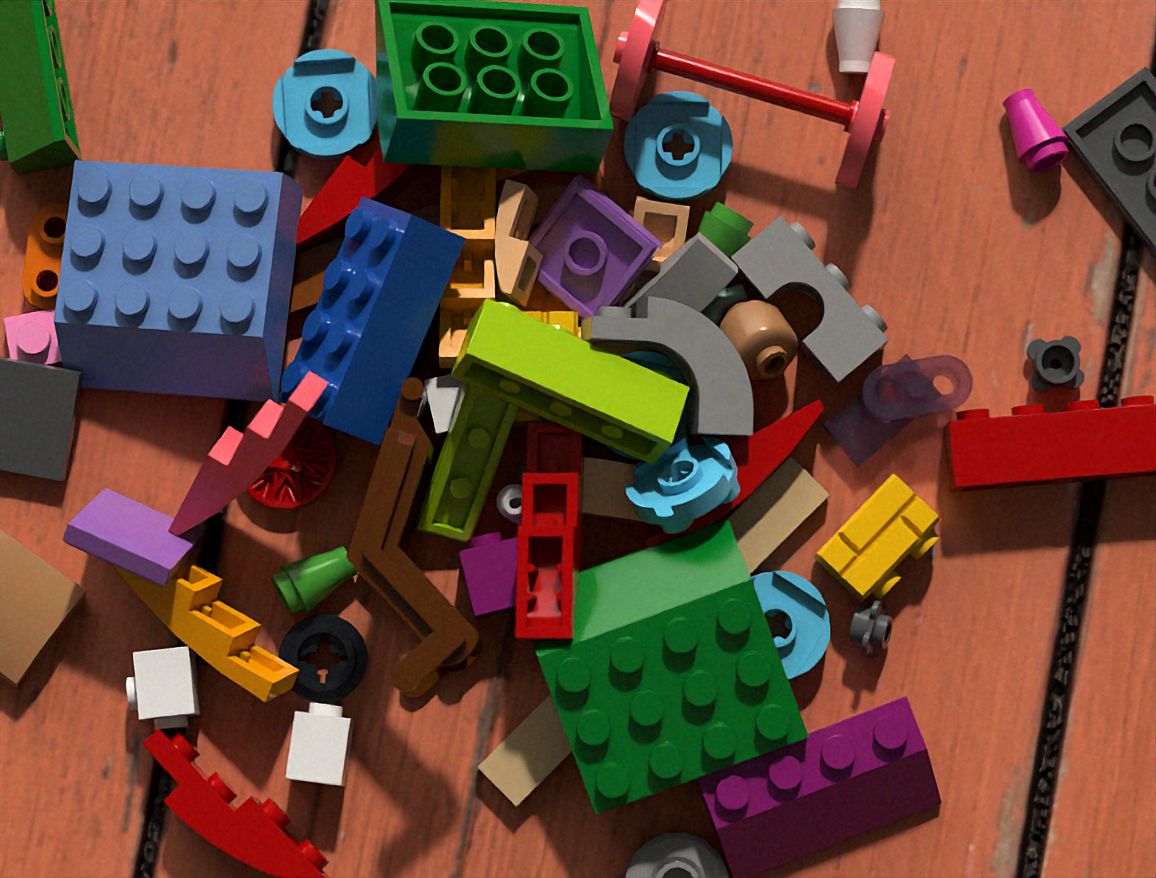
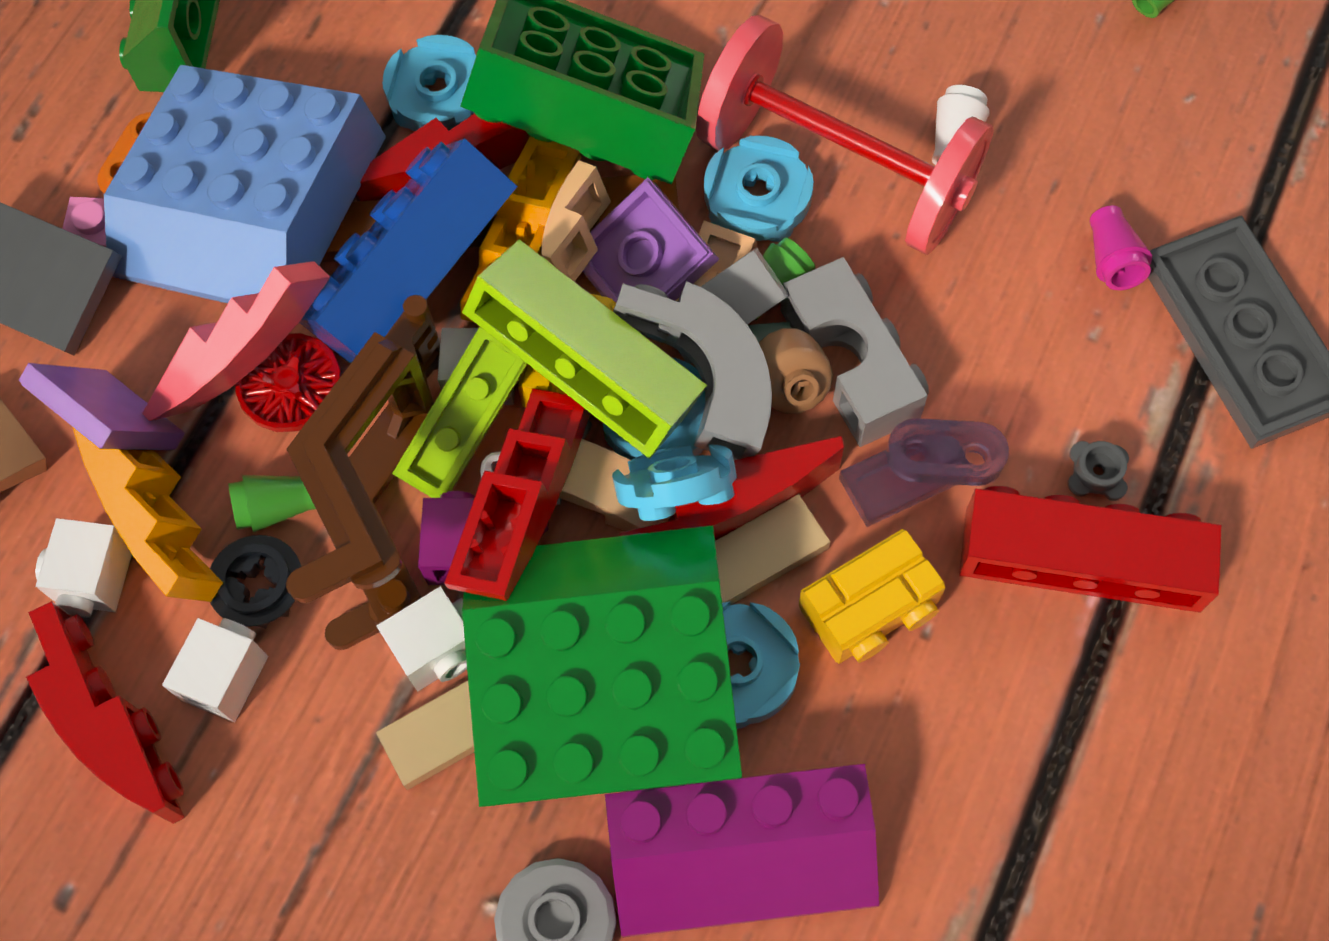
camera: 15 degrees right, 15 degrees down
(502, 673) = (428, 639): none -> white brick
(870, 628) = (842, 689): dark grey plate -> none

